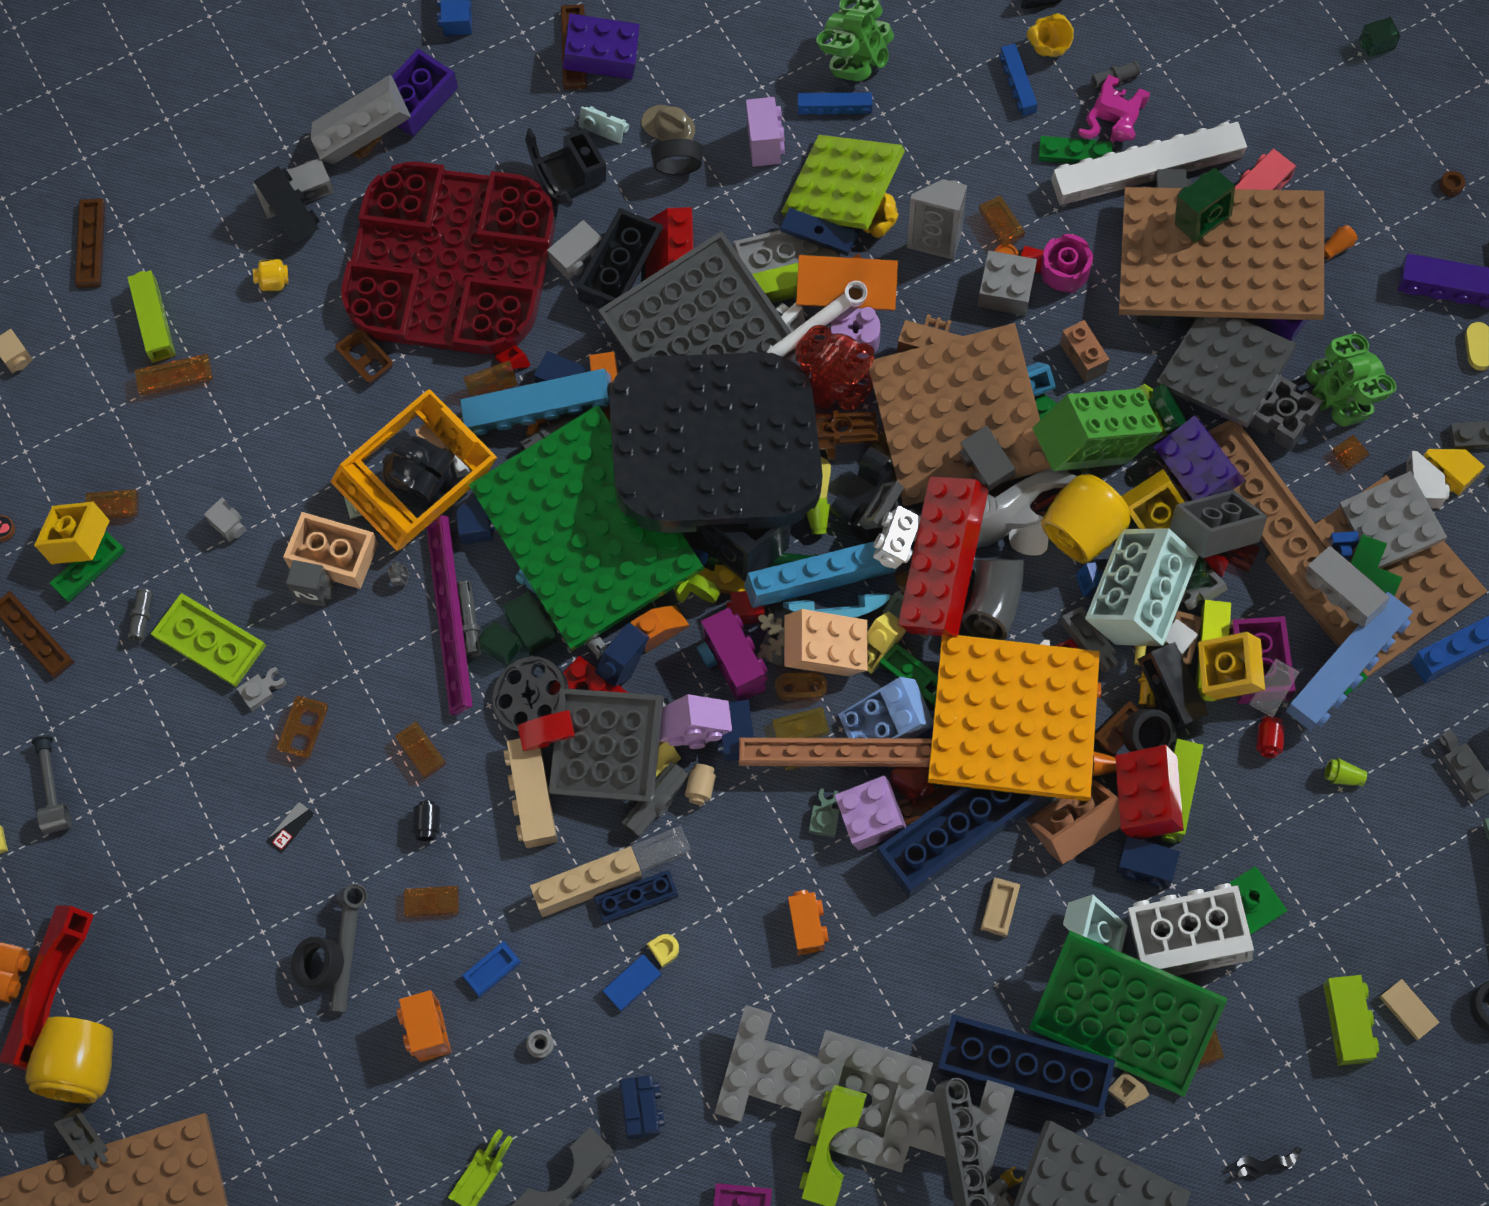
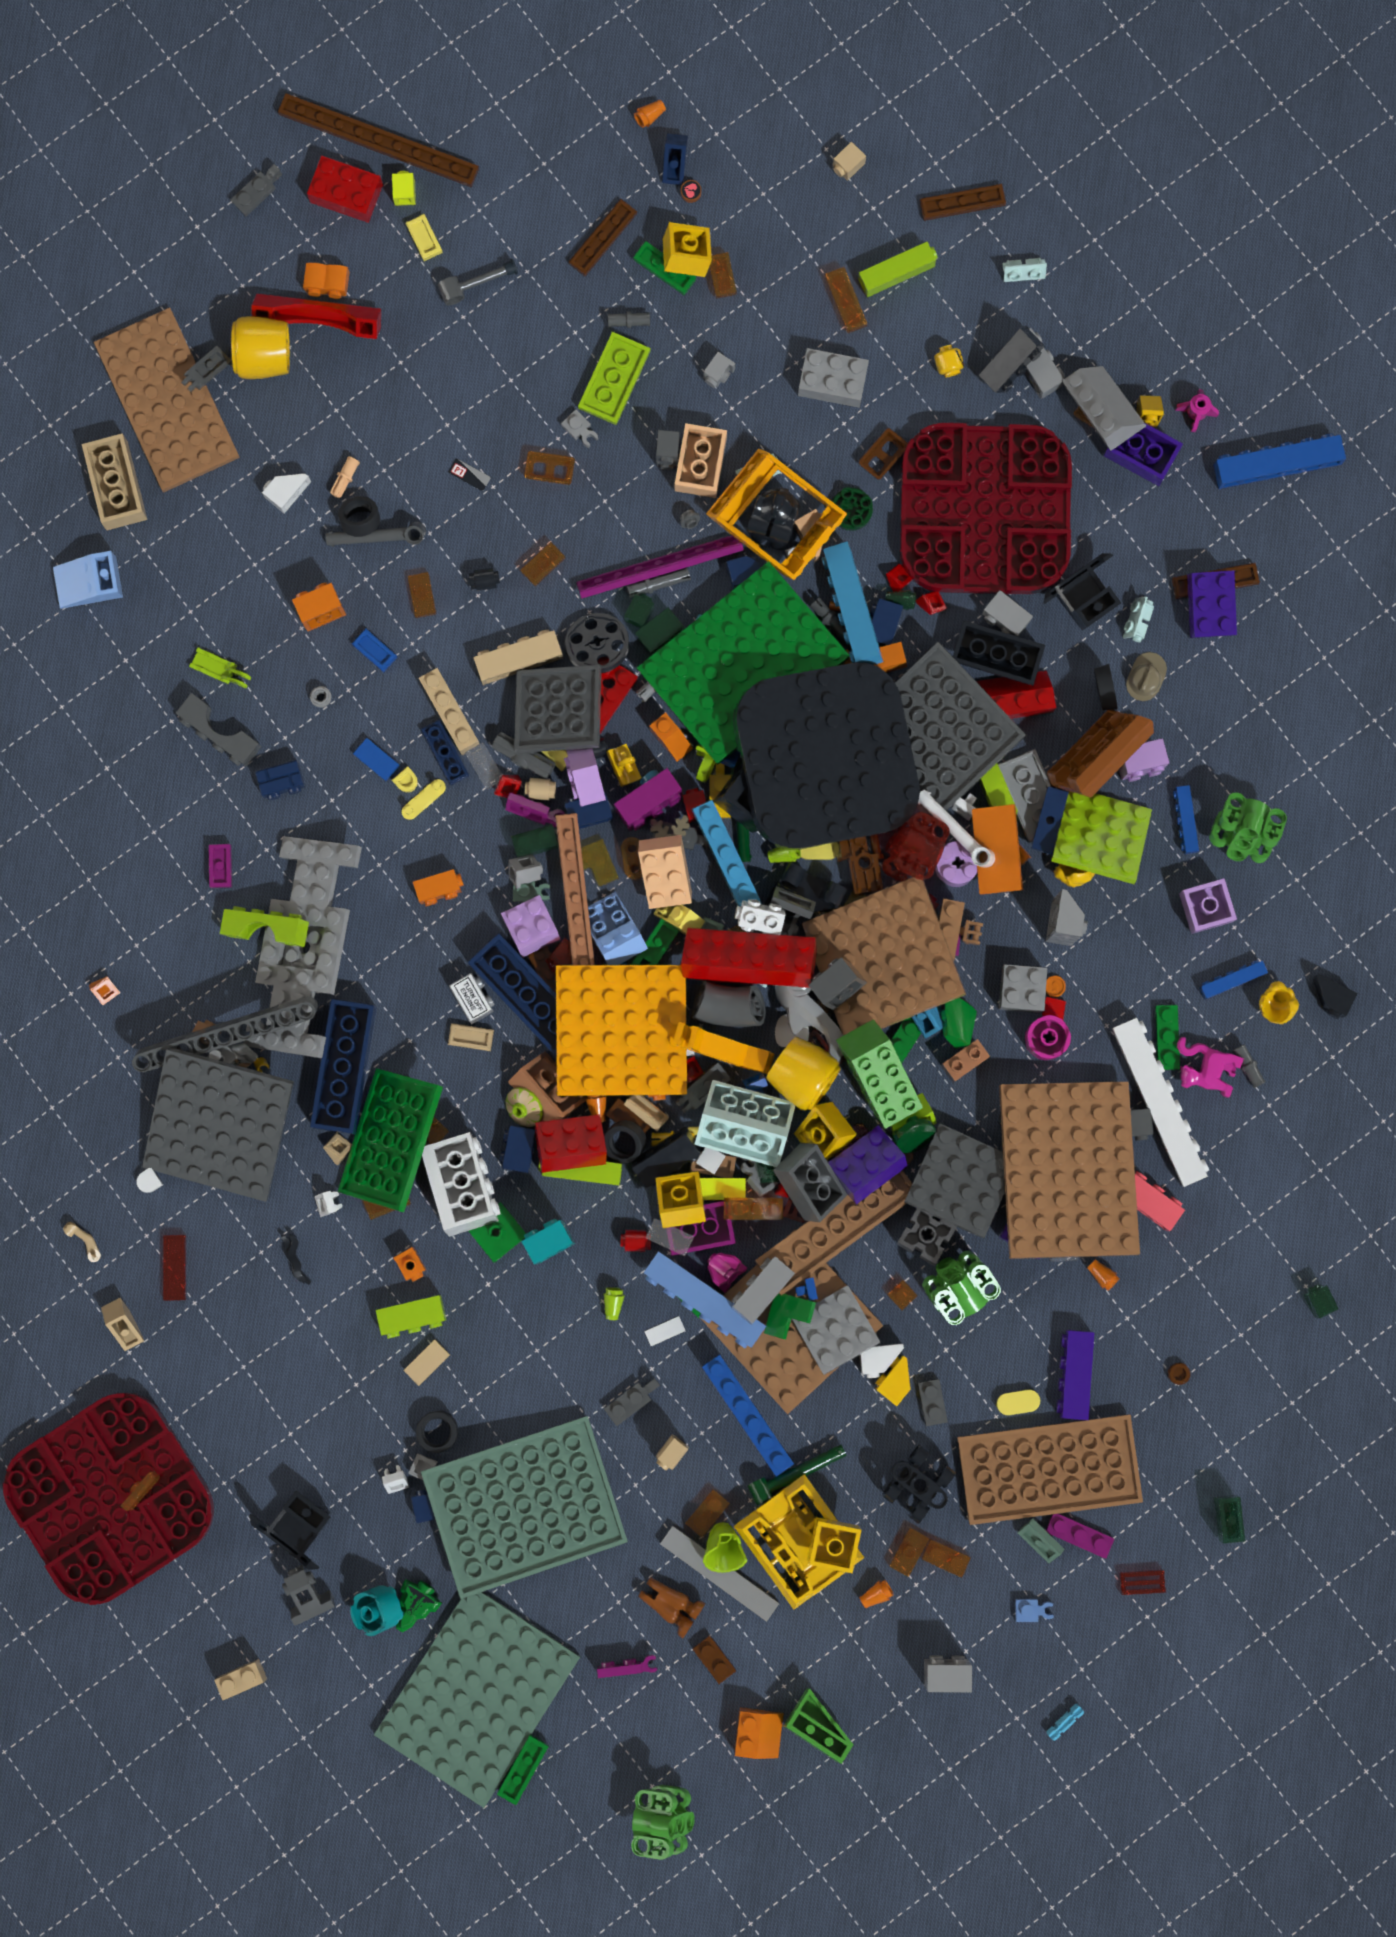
camera: 80 degrees right, 15 degrees up
(185, 182) = (1031, 270): none -> light aqua hinge
(261, 979) = (344, 477): none -> light nougat axle
(263, 396) = (833, 377): none -> light grey brick
(263, 1057) = (284, 490): none -> white slope
(370, 74) = (1150, 409): none -> yellow slope
(380, 38) = (1198, 408): none -> dark pink brick
(415, 387) = (856, 505): none -> dark green tile
(491, 379) = (873, 563): clear orange plate -> none
(536, 352) = (905, 598): none -> clear green cone
(545, 730) = (562, 659): red slope -> none
(547, 328) = (931, 603): none -> red slope
(622, 655) = (636, 710): dark blue slope -> none
(686, 681) = (623, 765): none -> yellow hips
(691, 822) = (507, 785): none -> red slope
(691, 931) = (423, 799): none -> light yellow piece
(726, 796) = (531, 810): none -> magenta plate
(752, 163) = (1100, 752): none -> dark orange piece
(765, 797) = (535, 841): none -> clear green brick
(800, 813) = (524, 870): none -> light grey brick
(866, 602) = (712, 905): medium azure slope -> none
(935, 89) = (1207, 906): none -> lavender brick
(952, 897) = (471, 998): none -> brick
(1001, 221) = (1085, 978): clear orange plate -> none
(1044, 350) = (958, 1022): none -> green slope
(1049, 601) = (723, 1049): none -> light orange piece
(1088, 845) = (524, 1107): none -> tan dish
(1095, 921) = (456, 1111): light aqua slope -> none
(1114, 705) = (646, 1111): none -> tan tile
(1199, 1112) = (326, 1204): none -> white tile
(1204, 204) = (1103, 1147): dark green brick -> none
(1242, 595) = (753, 1208): none -> clear orange plate
(1271, 832) = (547, 1242): none -> teal brick
(1277, 1020) = (407, 1256): none -> orange brick
(1312, 639) = (724, 1269): none -> dark pink brick
(1380, 720) = (664, 1331): none -> white sticker

